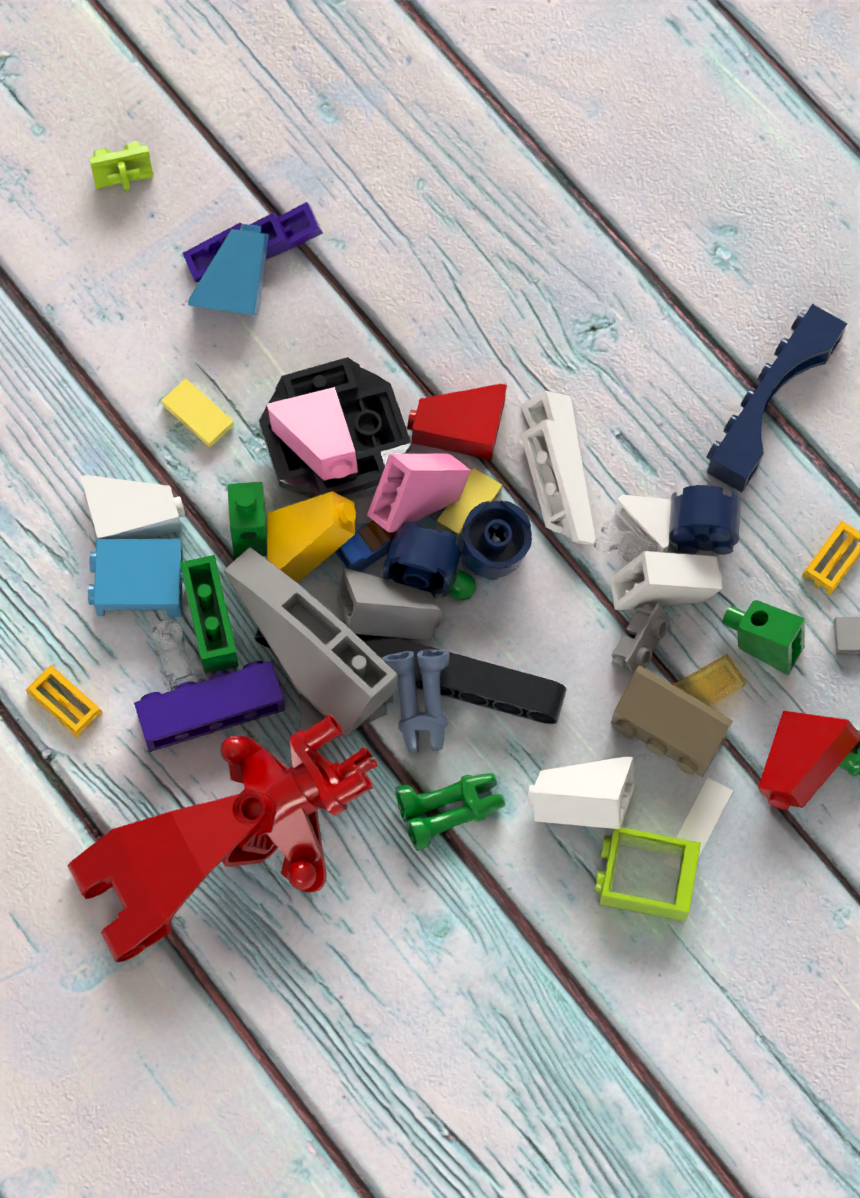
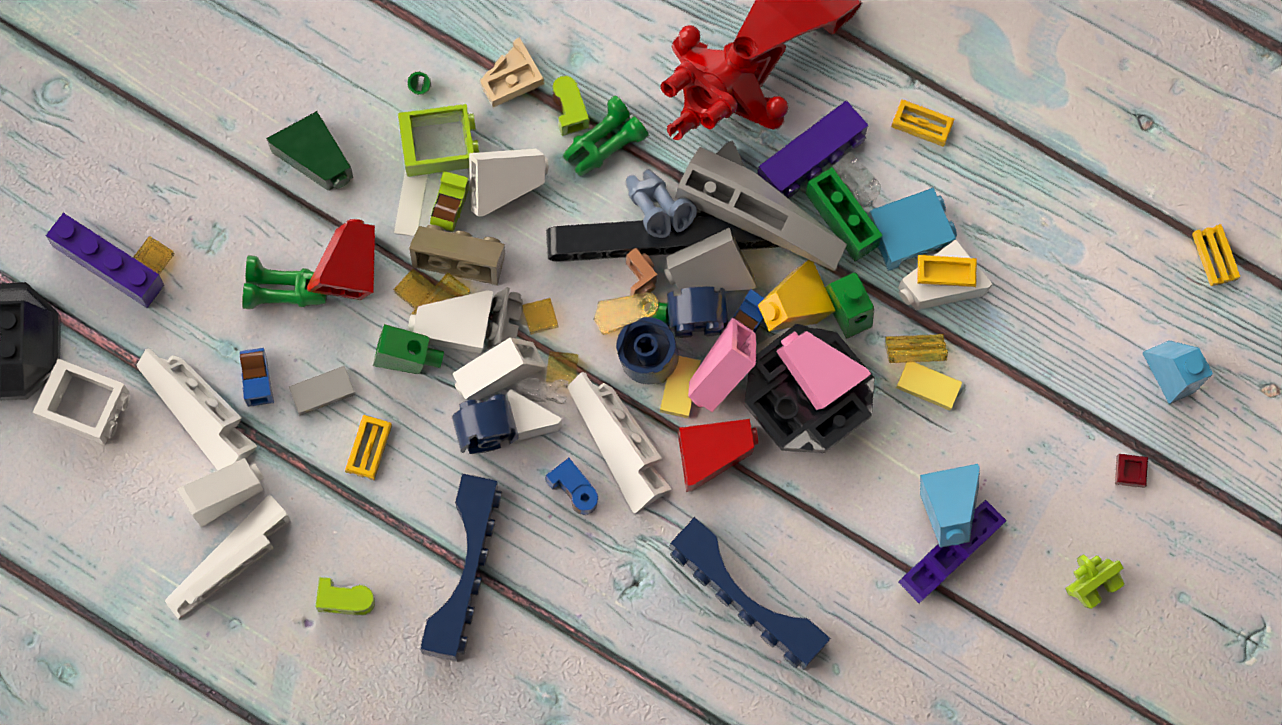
camera: 155 degrees right, 5 degrees up
(26, 258) = (1131, 470): none -> dark red tile
(126, 501) = (947, 270): none -> yellow tile
(167, 443) = (916, 348): none -> clear yellow tile
(451, 217) = (793, 635): none -> dark blue arch
(461, 626) = (643, 269): none -> nougat bracket
(472, 875) = (568, 97): none -> lime leg
(502, 598) = (618, 312): none -> clear yellow piece
(530, 927) = (511, 75): none -> tan wing
(592, 569) = (562, 366): none -> clear yellow tile
(597, 633) = (540, 316): none -> clear yellow tile
(625, 437) = (575, 485): none -> blue leg
(650, 946) = (413, 82): none -> green hinge
(658, 795) = (449, 200): none -> lime leg
(700, 649) = (455, 322): none -> white slope
(736, 709) = (413, 288): none -> clear yellow tile
(803, 911) = (312, 151): none -> dark green slope

